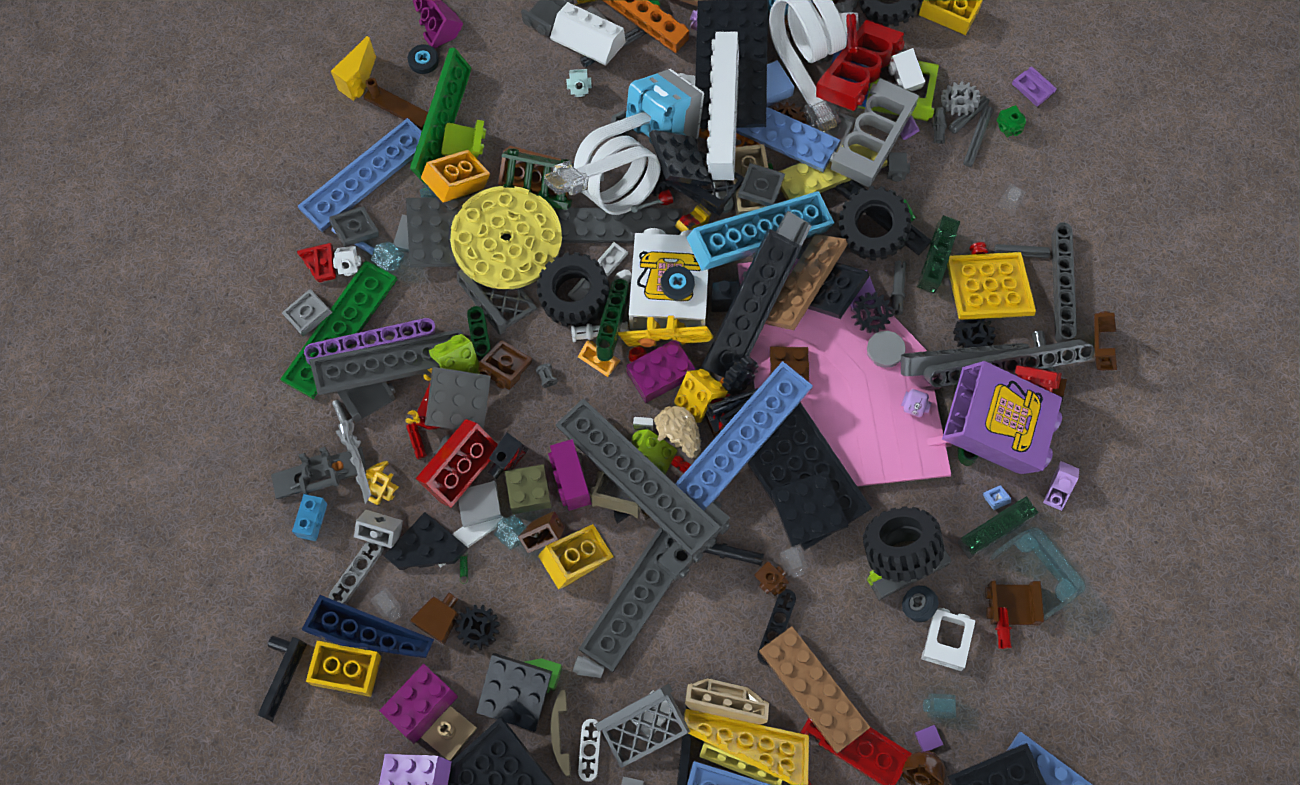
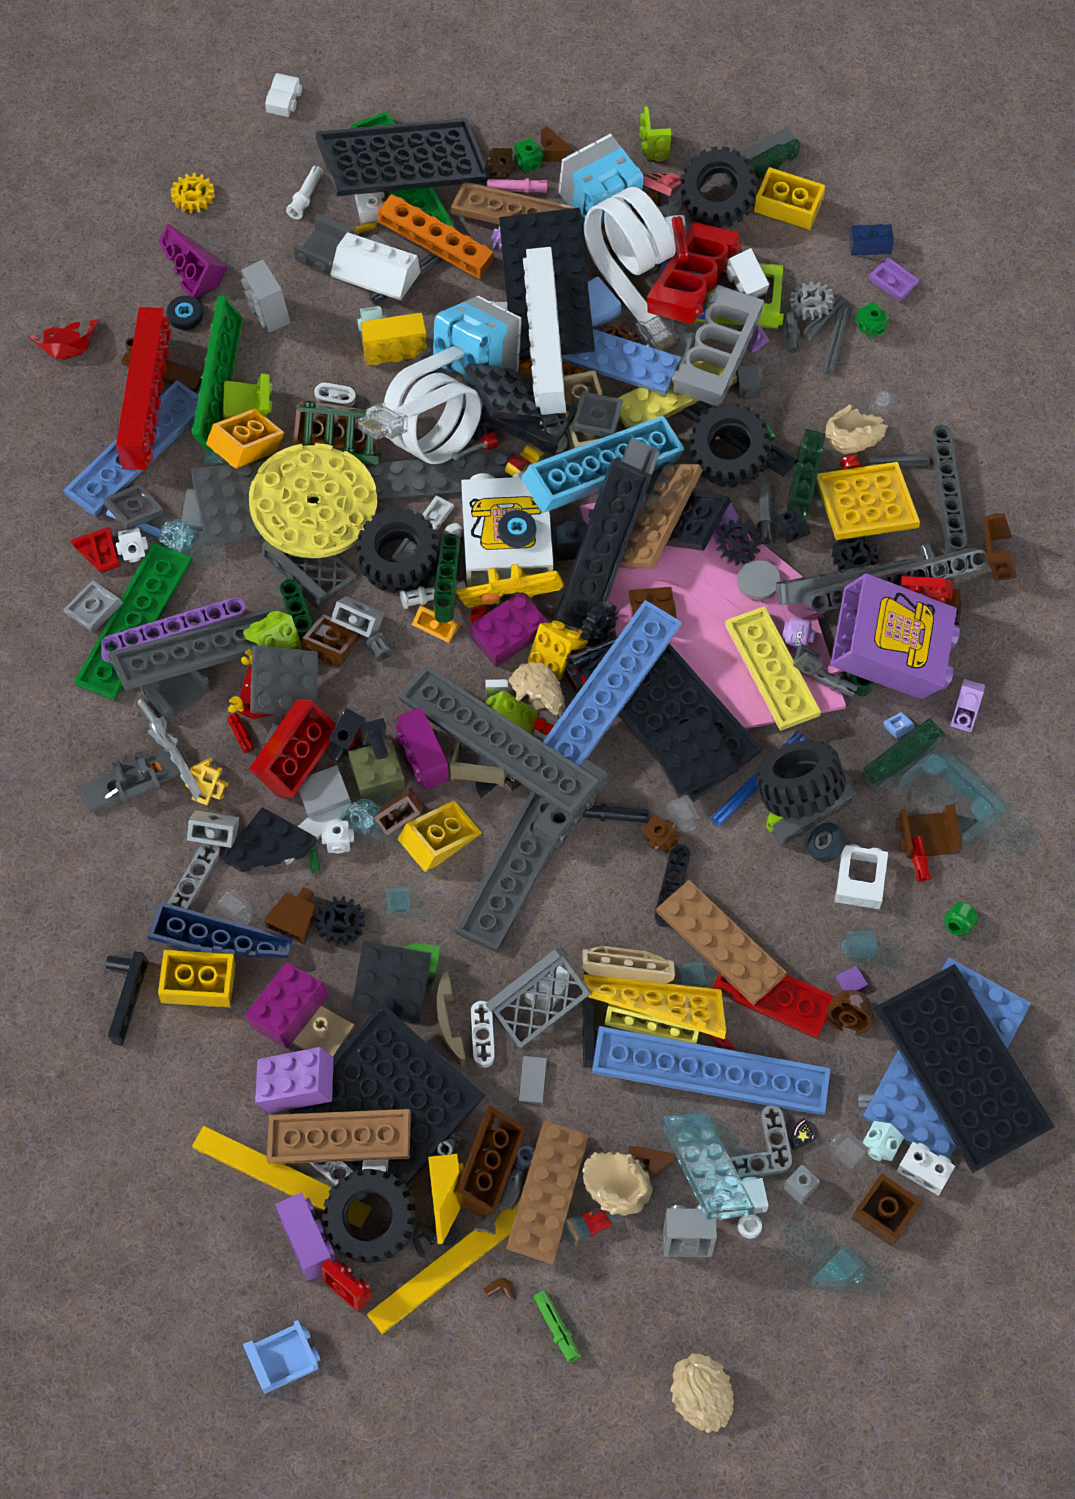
camera: 10 degrees left, 5 degrees down
(309, 517) = (132, 825): dark azure brick -> none
(318, 77) = (65, 342): none -> red piece
(355, 69) = (106, 333): yellow slope -> none
(375, 124) = (143, 388): none -> red brick
(489, 52) = (265, 296): none -> light grey brick
(489, 553) = (337, 836): none -> white brick
(525, 463) = (374, 734): none -> black piece
(530, 346) = (357, 616): none -> light grey brick
(531, 613) = (398, 900): none -> clear light blue plate
(540, 142) = (335, 394): none -> white plate
(586, 667) = (468, 949): light grey cone -> none
(594, 99) = (393, 338): none -> yellow brick
(784, 715) = (692, 974): none -> clear light blue plate
(856, 541) = (743, 793): none -> blue axle
(889, 433) = (772, 668): none -> light yellow plate
(921, 301) = (792, 525): none -> black brick
(921, 430) = (807, 660): none -> dark grey bracket
(944, 452) = (835, 682): none -> dark grey pin
(985, 221) = (854, 432): none -> tan hair
(1018, 49) = (871, 239): none -> dark blue brick
(1035, 691) = (960, 919): none -> green head

